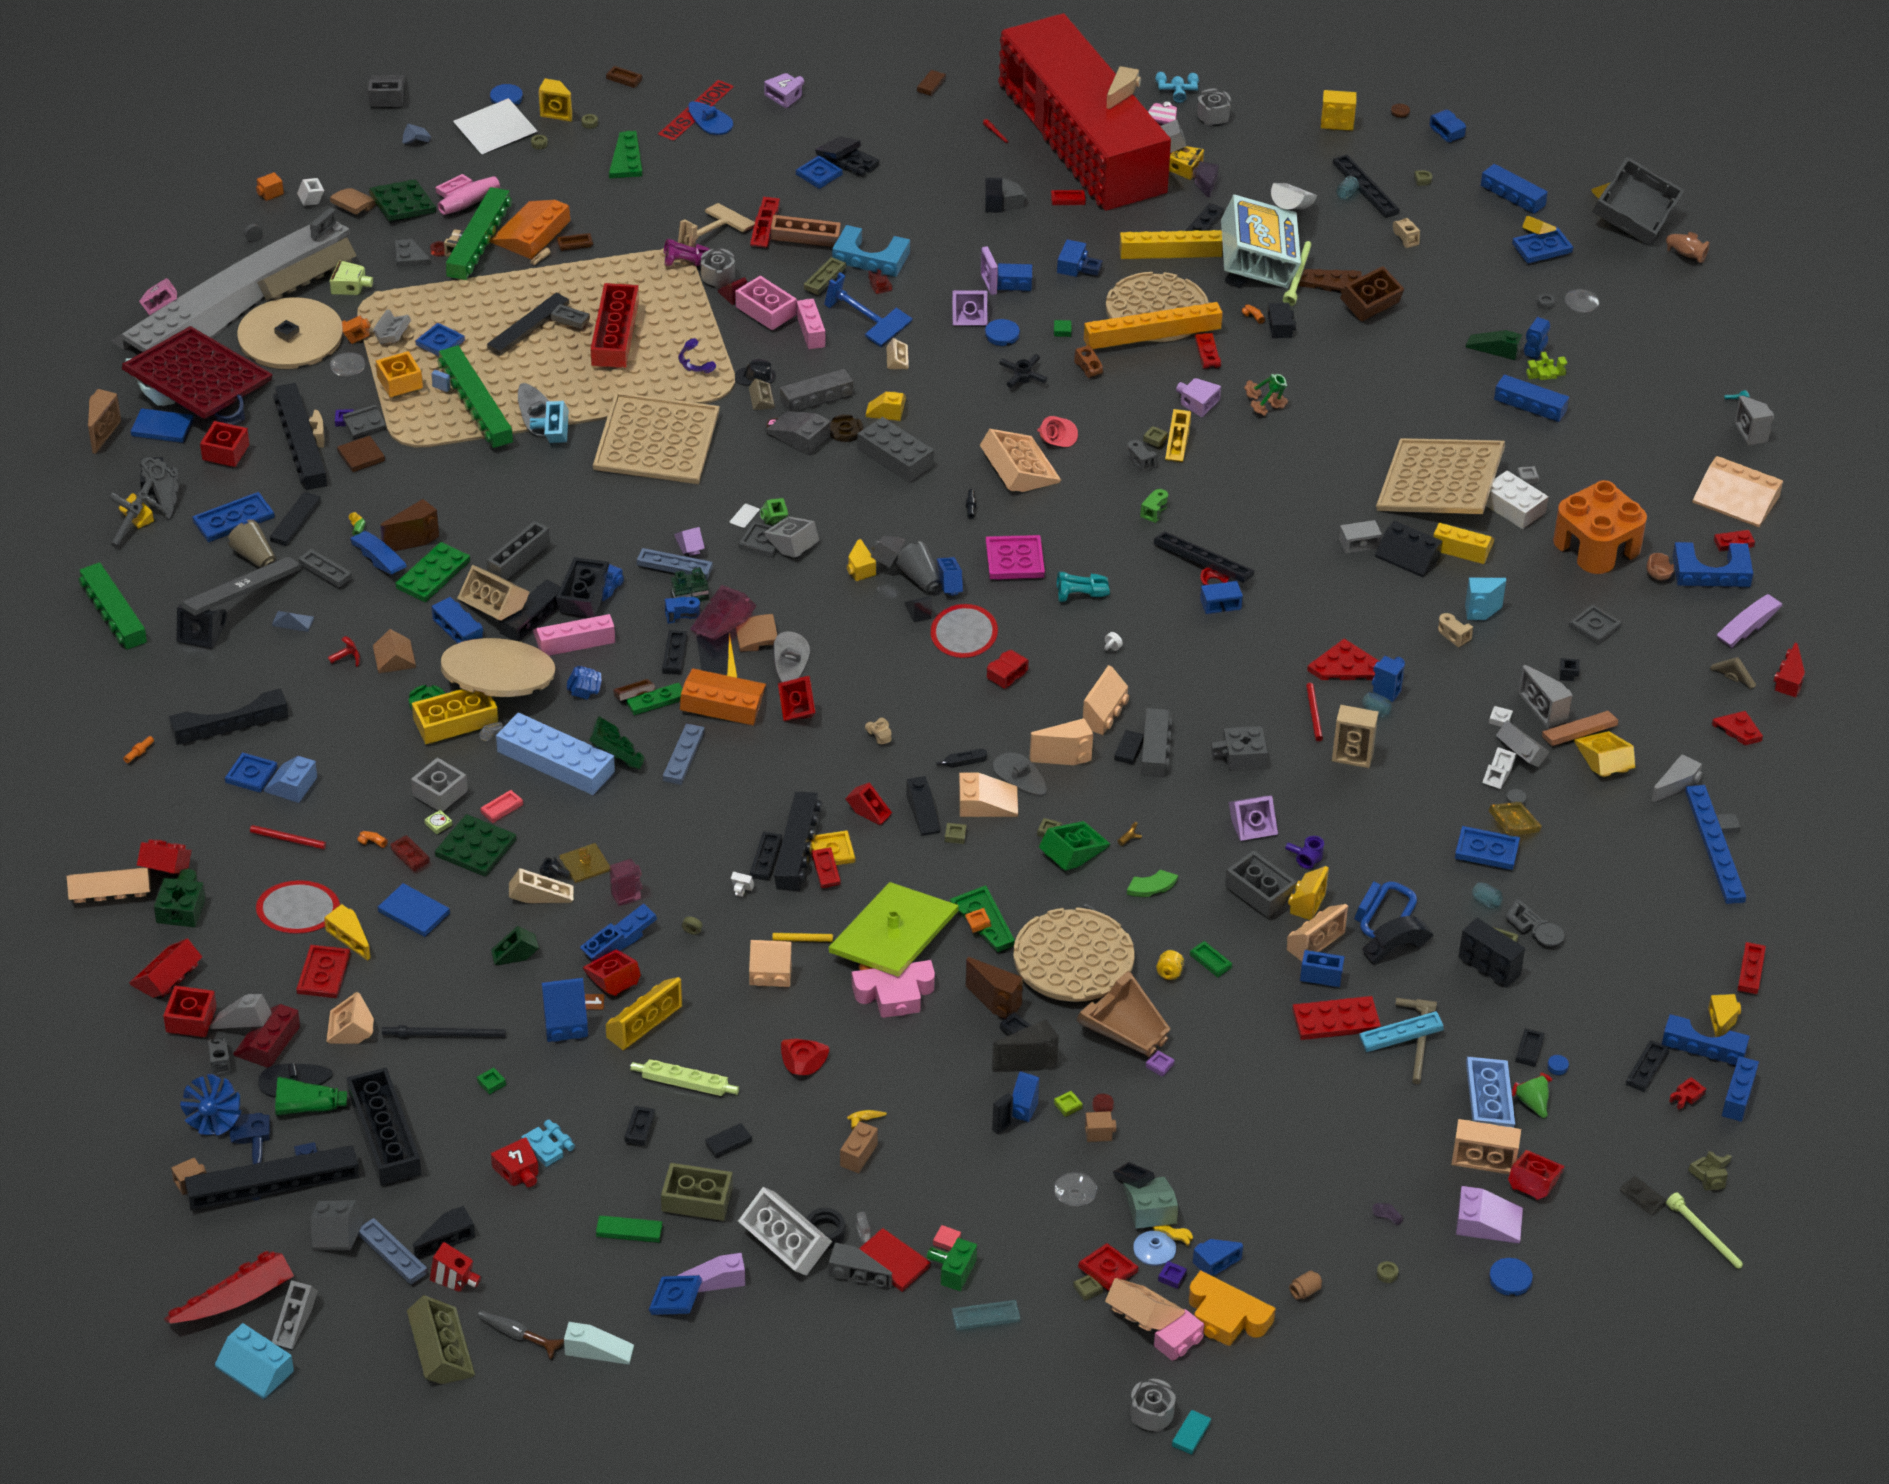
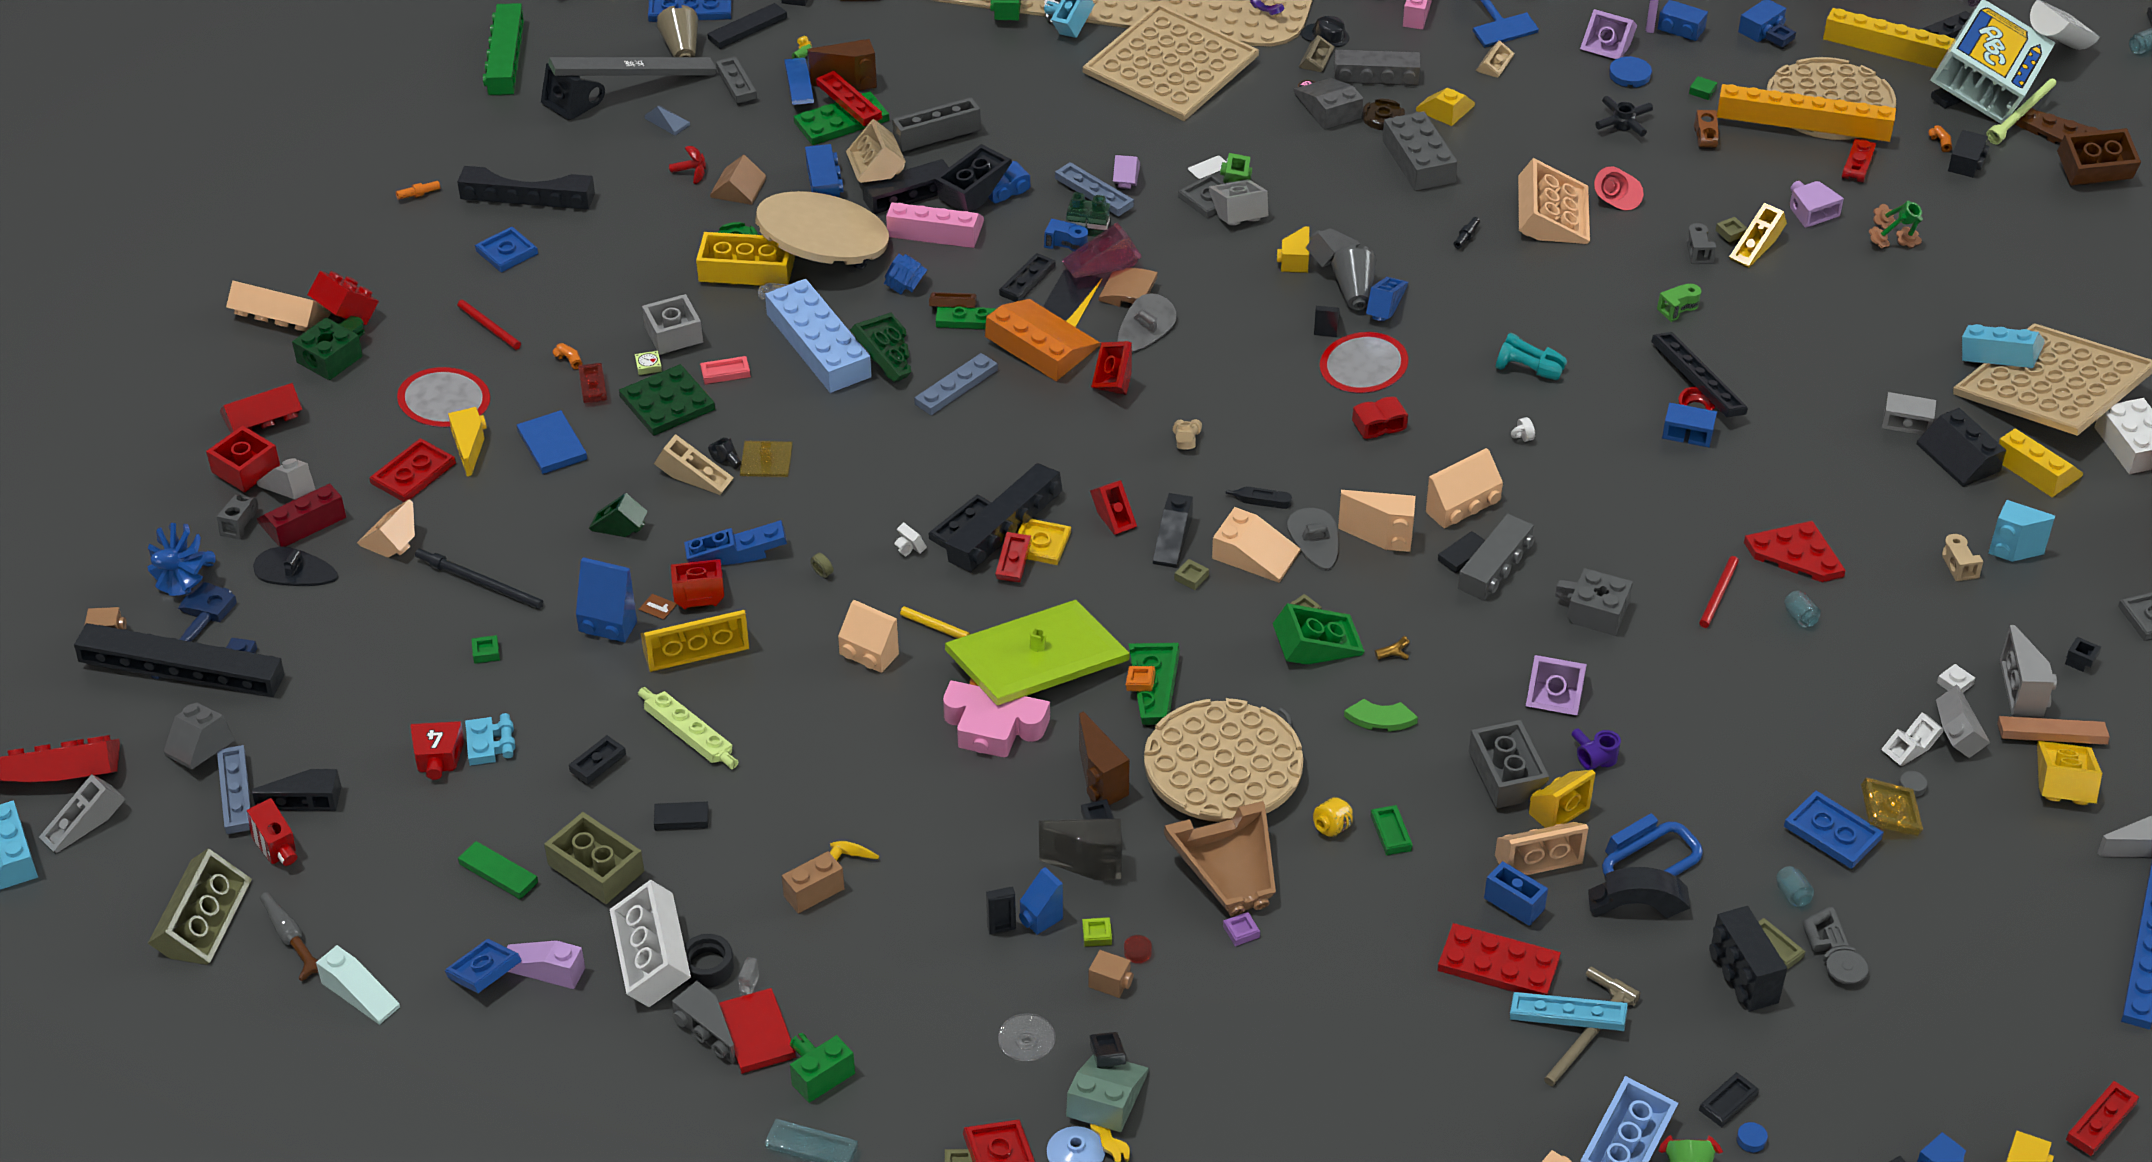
camera: 30 degrees right, 0 degrees up
(293, 779) = (539, 270): medium blue slope -> none
(299, 1097) = (275, 586): green piece -> none
(383, 1126) = (330, 652): black brick -> none
(435, 553) = (849, 98): none -> red plate
(625, 881) = (780, 491): clear pink piece -> none
(803, 1056) = (834, 755): red hat -> none
(946, 1237) = (837, 1026): coral tile -> none
(1015, 557) = (1475, 303): dark pink plate -> none
(1354, 736) = (1739, 633): tan brick -> none
(1388, 677) = (1834, 582): blue brick -> none
(1393, 464) = (2001, 346): none -> medium azure slope

